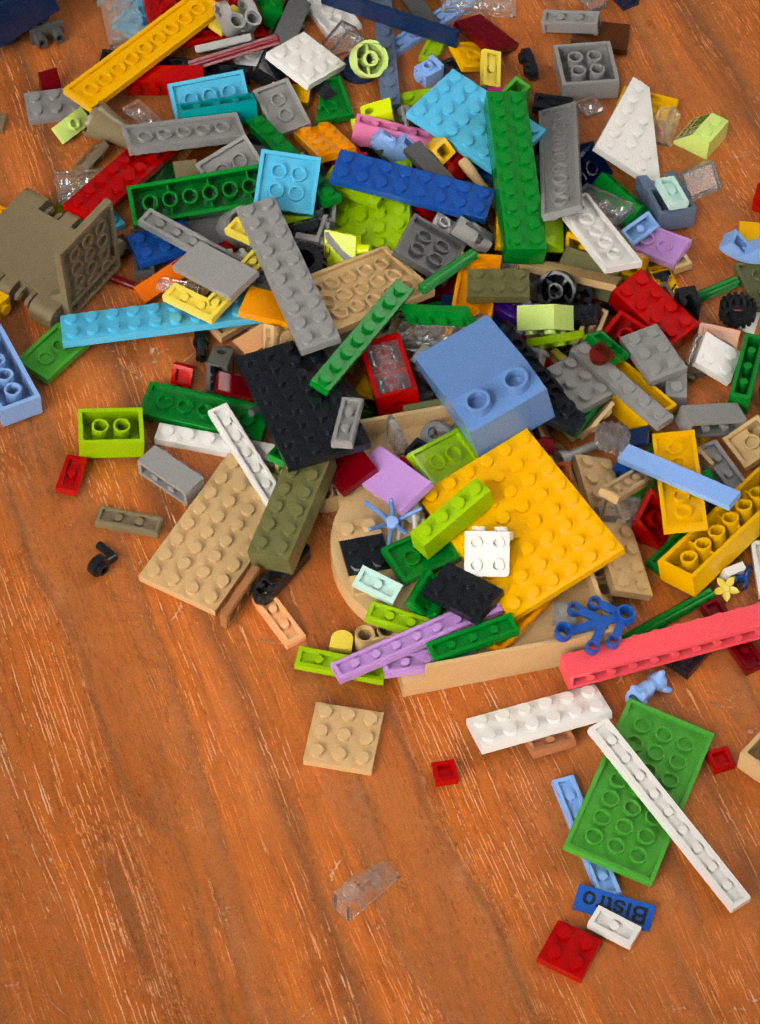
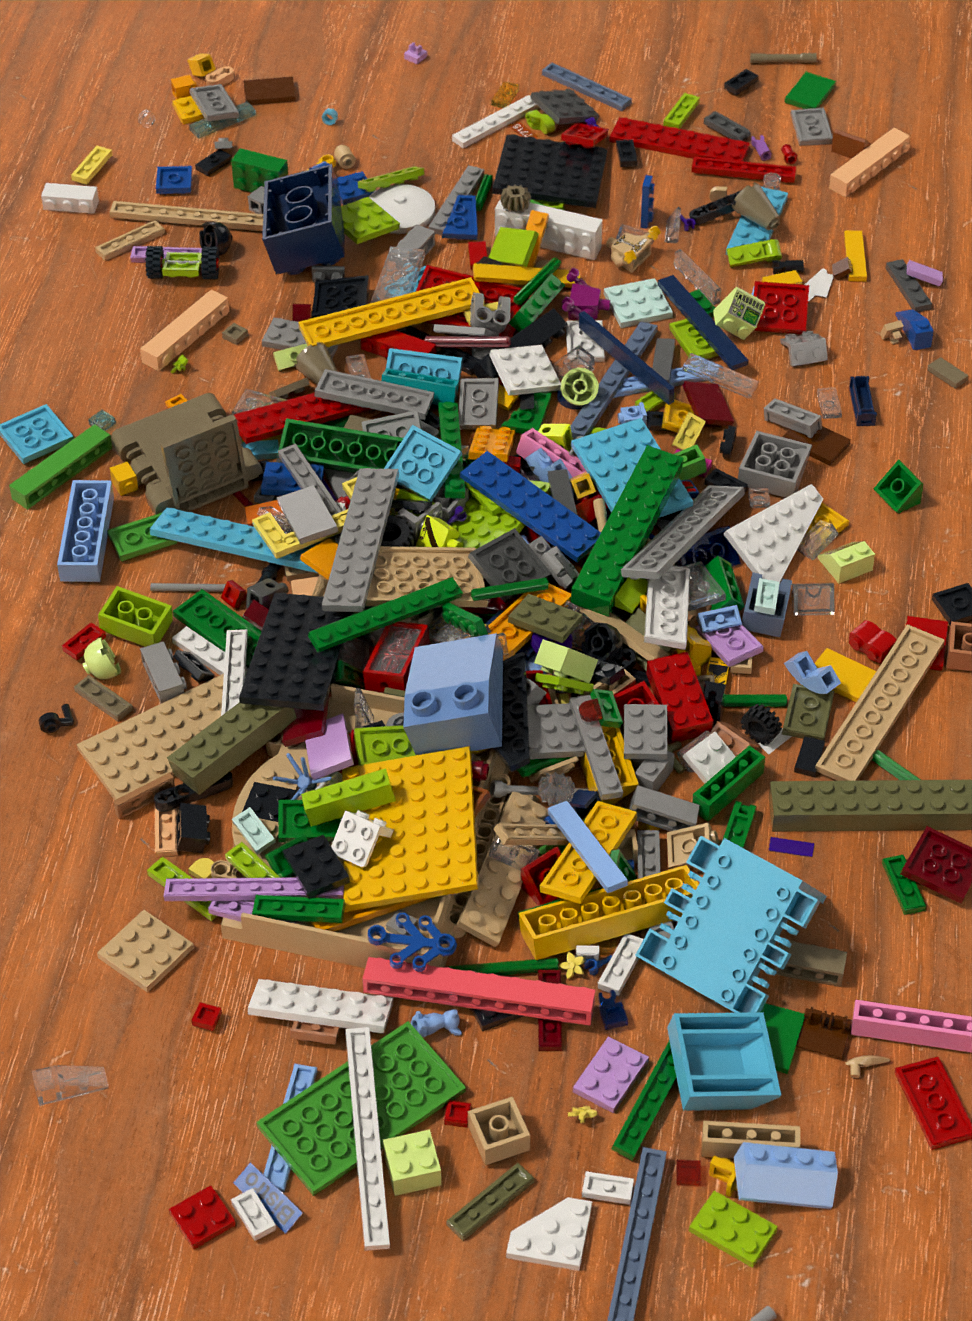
camera: 30 degrees right, 5 degrees down
(75, 51) = (340, 295): none -> black plate
(105, 487) = (100, 660): none -> yellowish green cylinder
(133, 384) = (187, 587): none -> light grey bar
(188, 455) = (193, 665): none -> black plate
(307, 608) = (192, 827): none -> black brick
(343, 220) = (460, 517): none -> dark purple hand
(347, 423) = (313, 679): light grey tile -> none
(703, 53) = (900, 488): none -> green slope
(719, 817) = (412, 1162): none -> yellowish green brick

